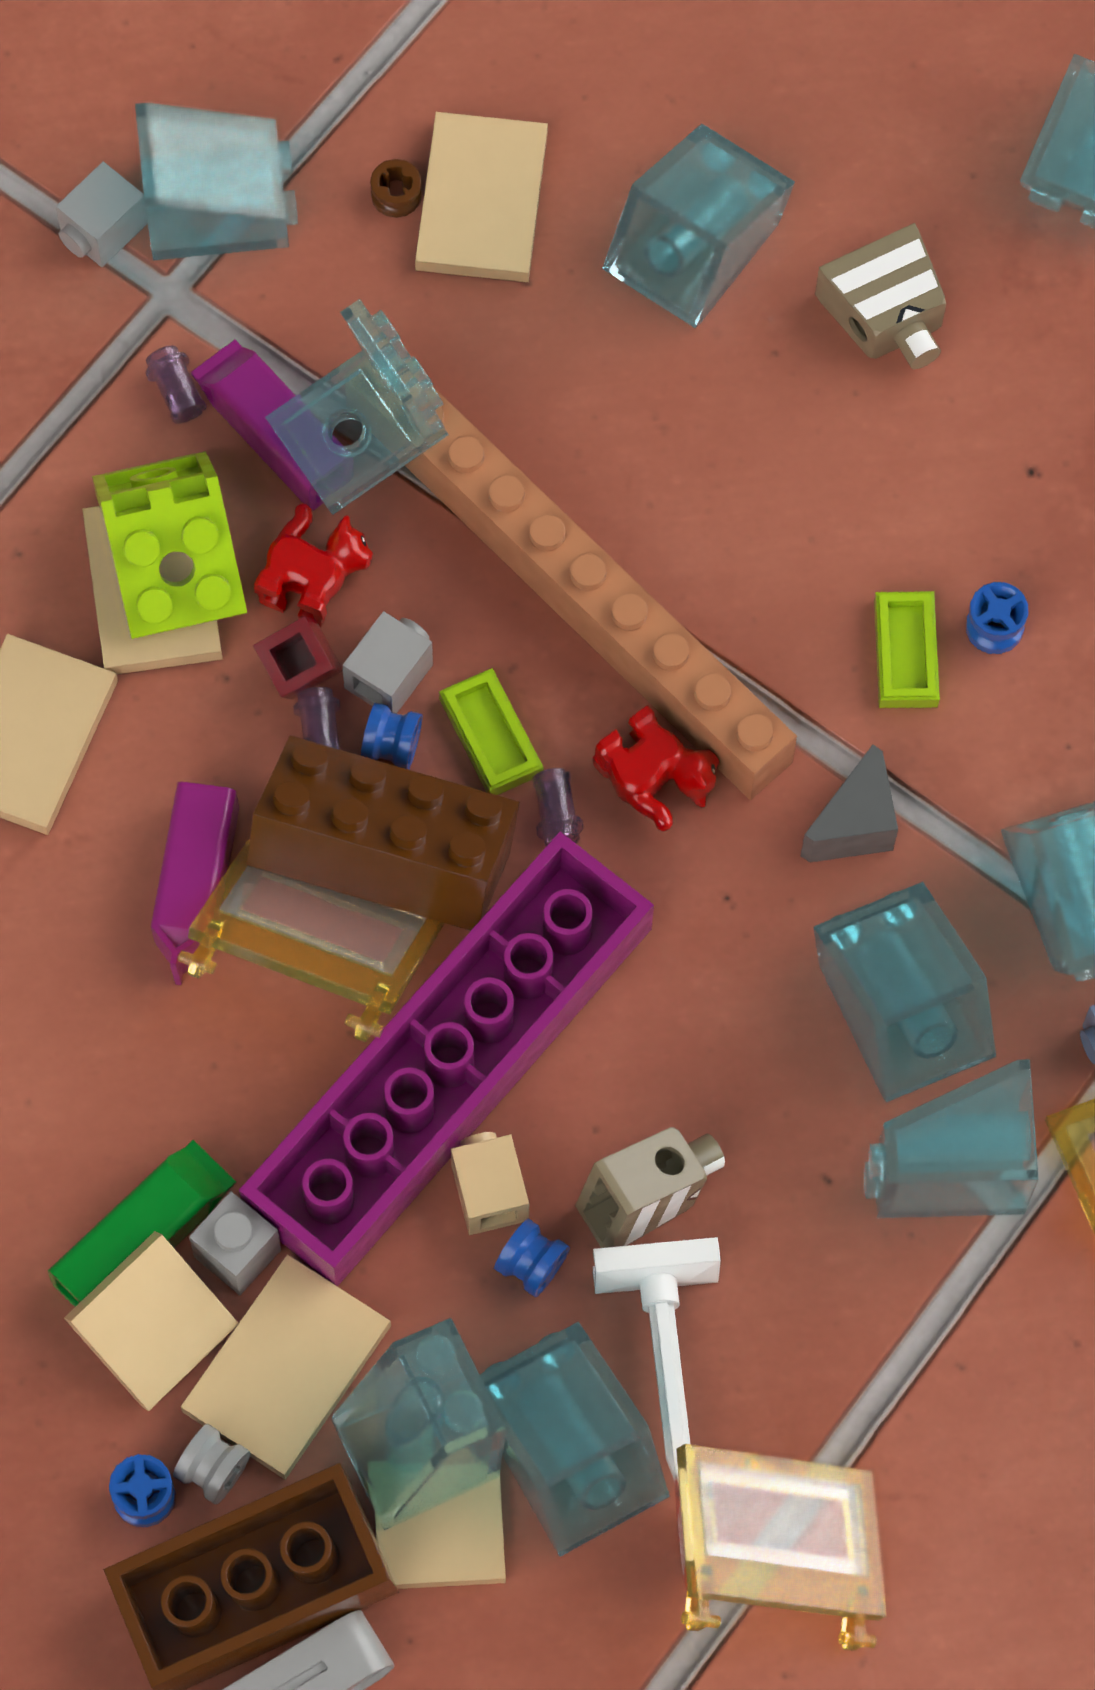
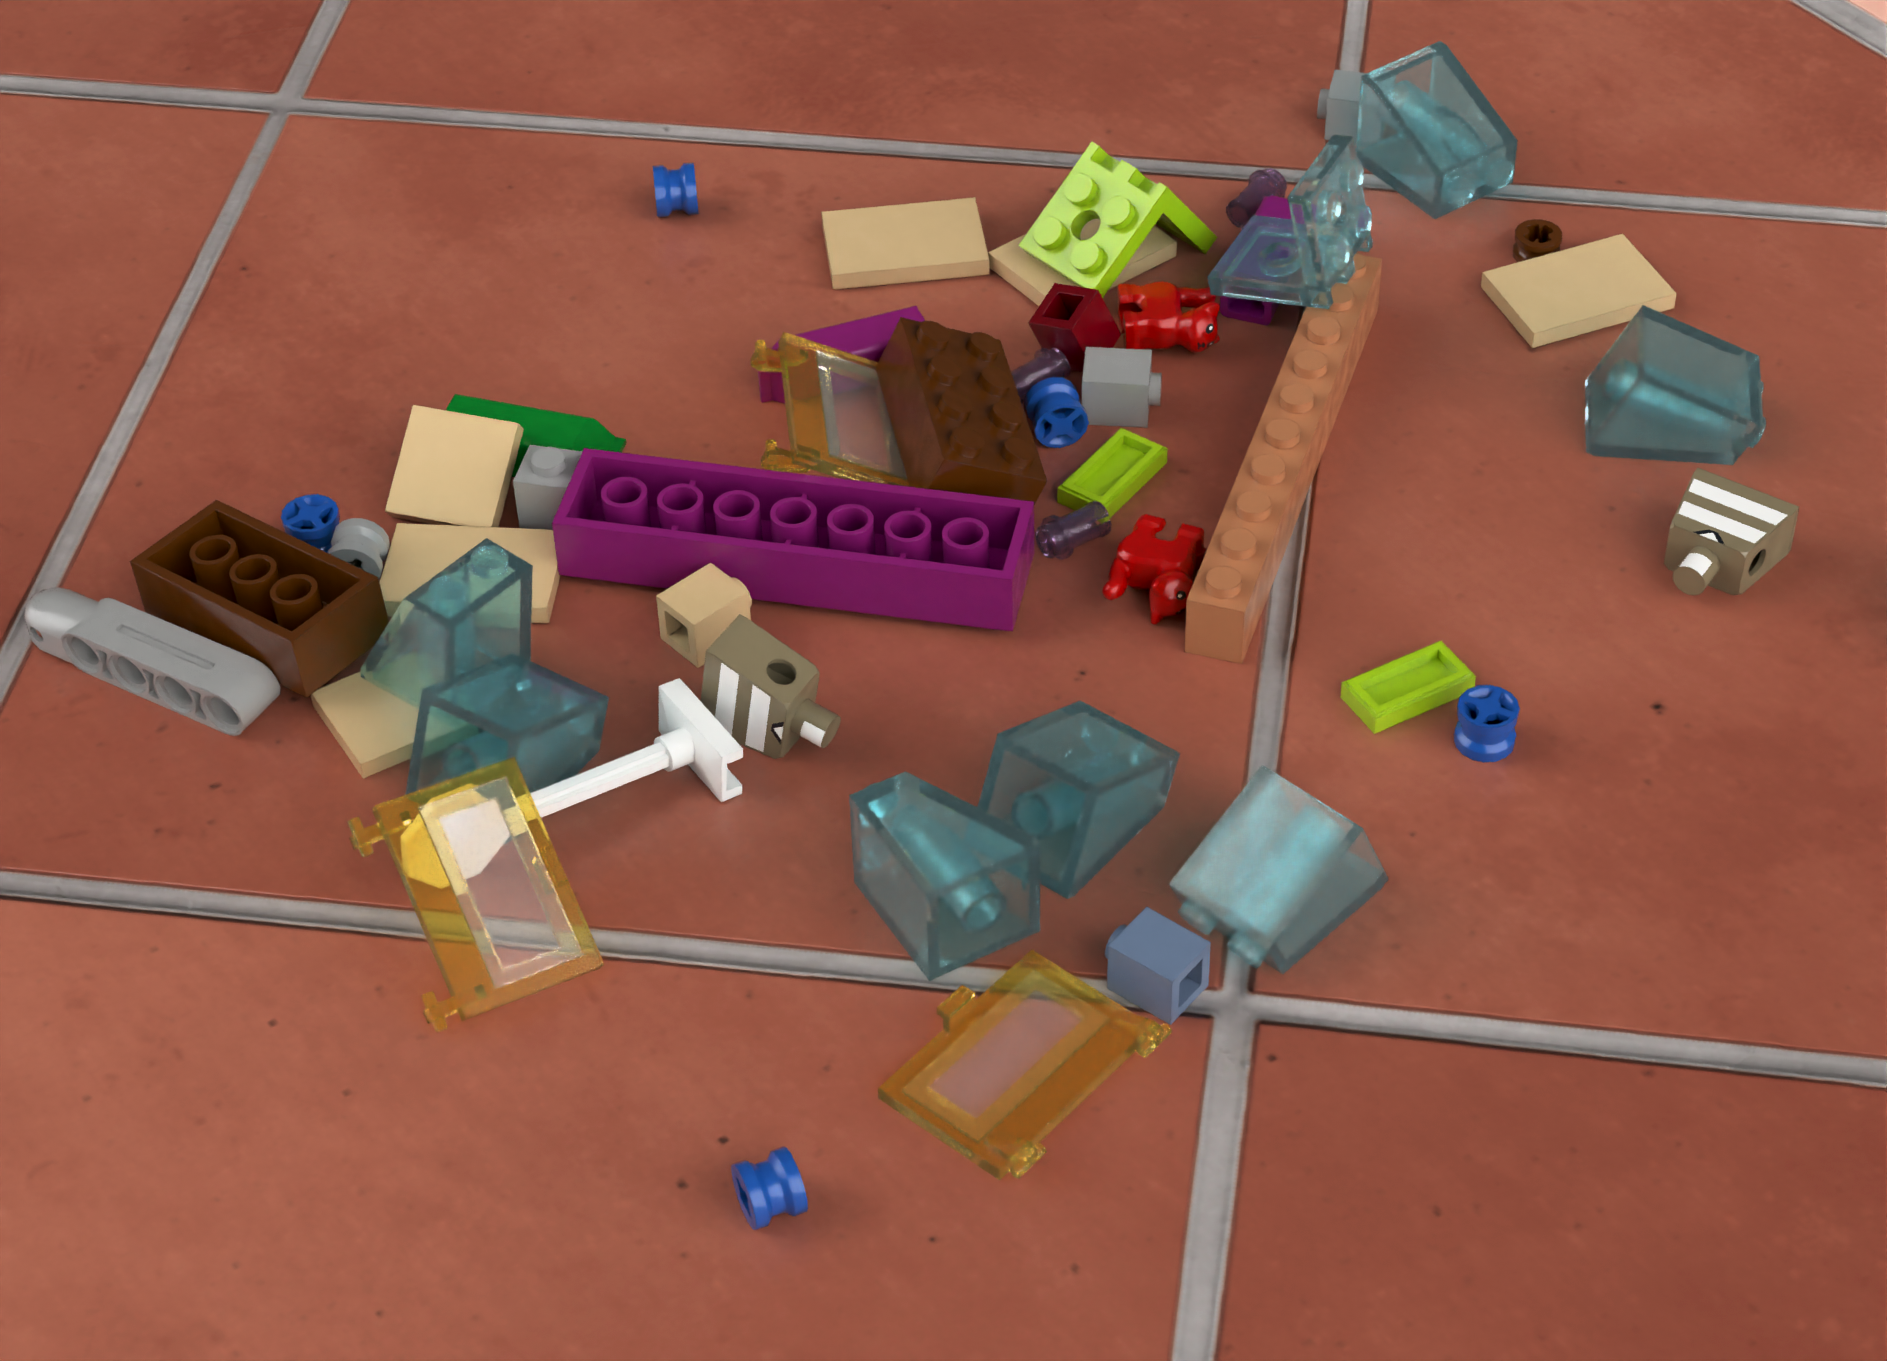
camera: 65 degrees right, 25 degrees down
(531, 1257) = (655, 659): blue wheel -> none
(858, 816) = (1218, 701): dark grey slope -> none

